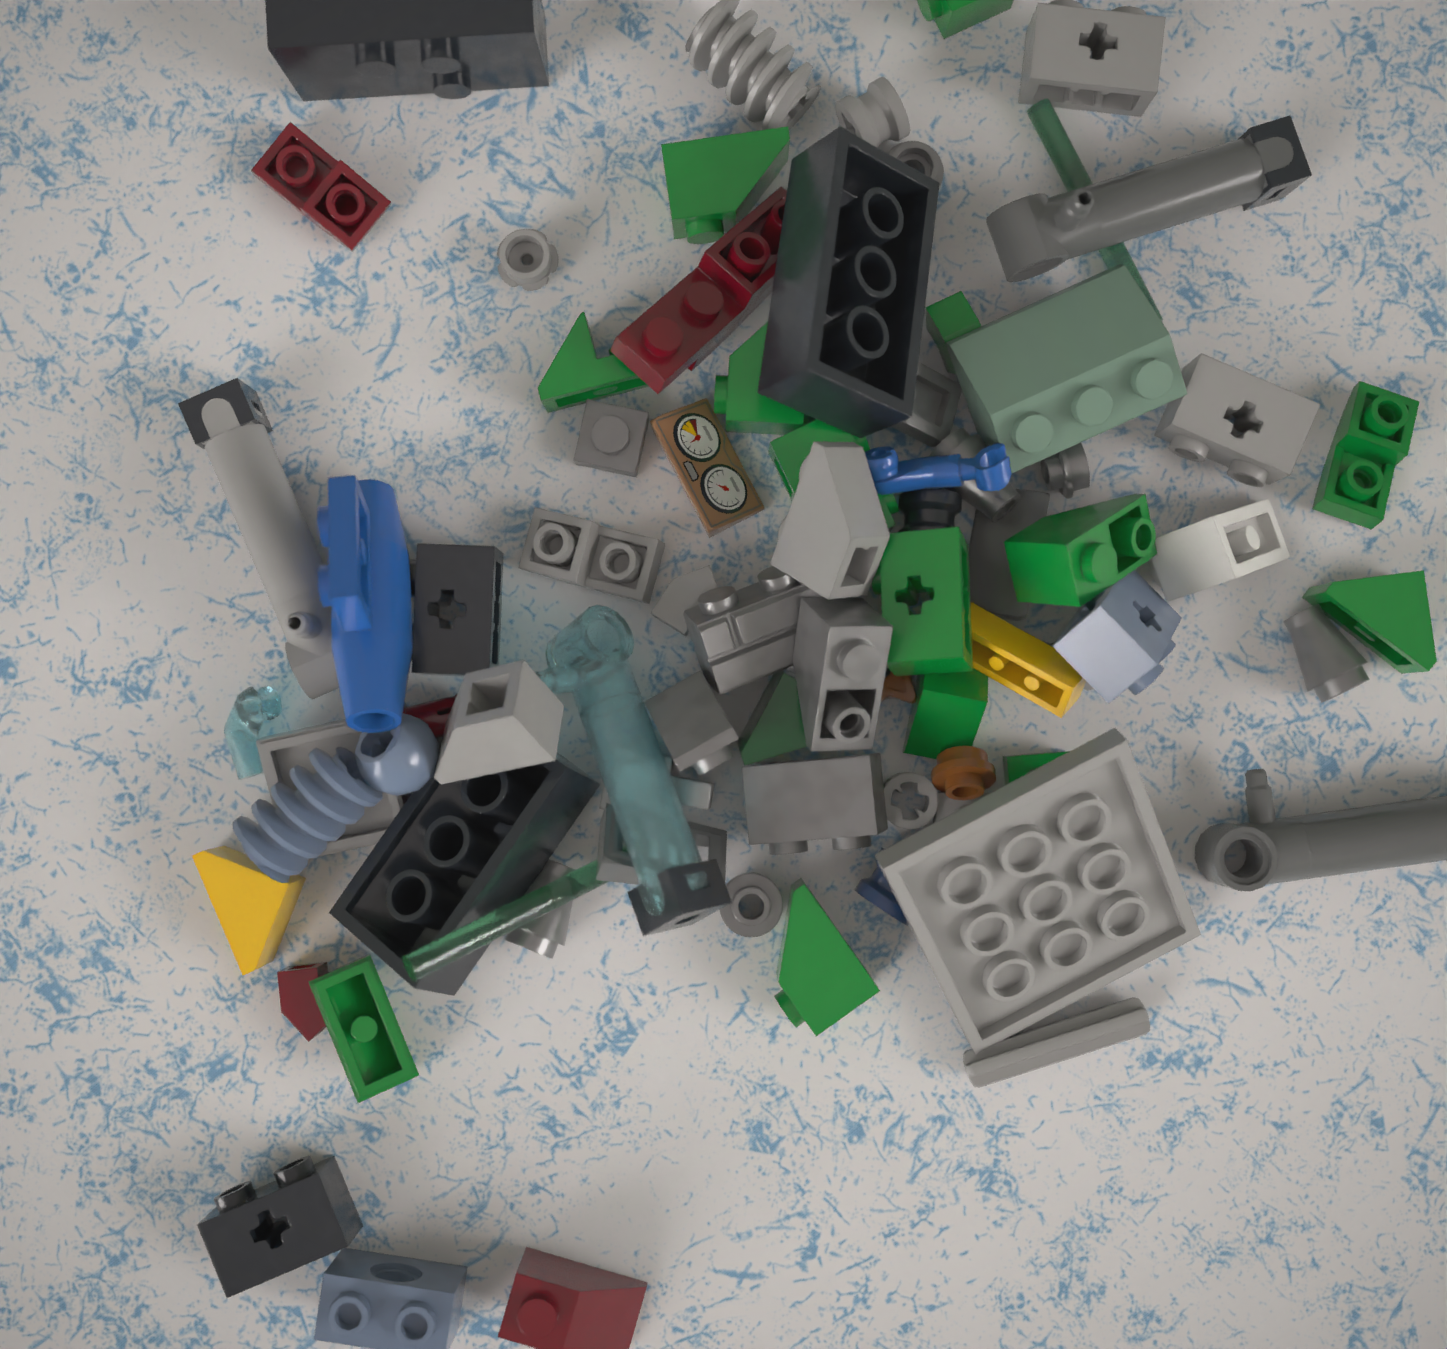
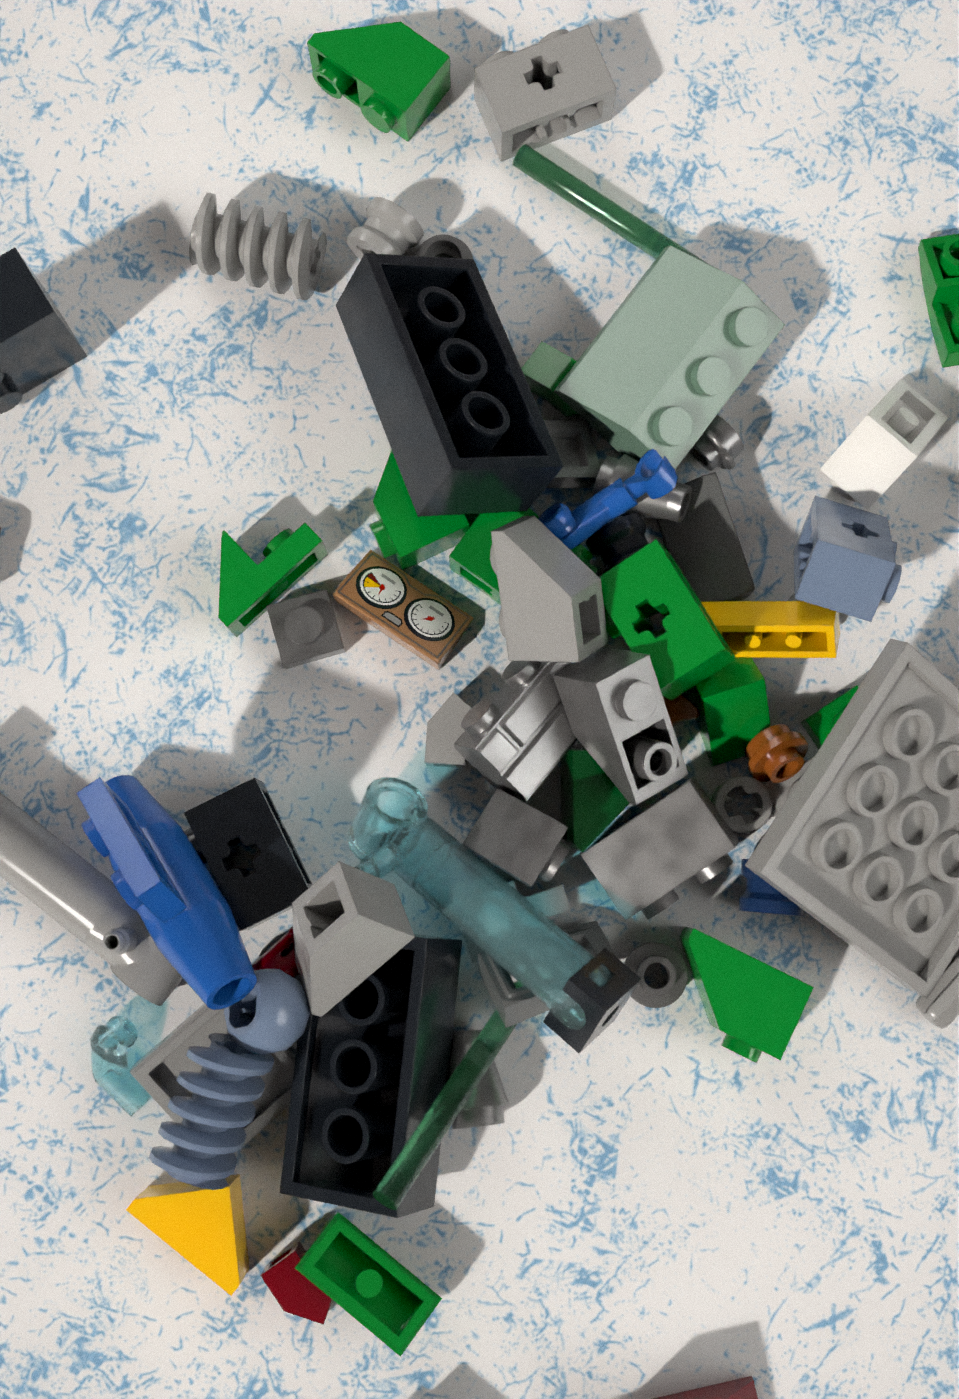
camera: 35 degrees left, 5 degrees down
(523, 243) = (138, 500): light grey plate -> none
(591, 555) = (343, 741): light grey slope -> none
(708, 302) = (328, 464): dark red slope -> none
(720, 179) = (280, 357): green slope -> none
(1080, 551) = (770, 505): green slope -> none
(1251, 171) = (730, 115): dark grey piece -> none
(1268, 416) = (862, 308): light grey brick -> none

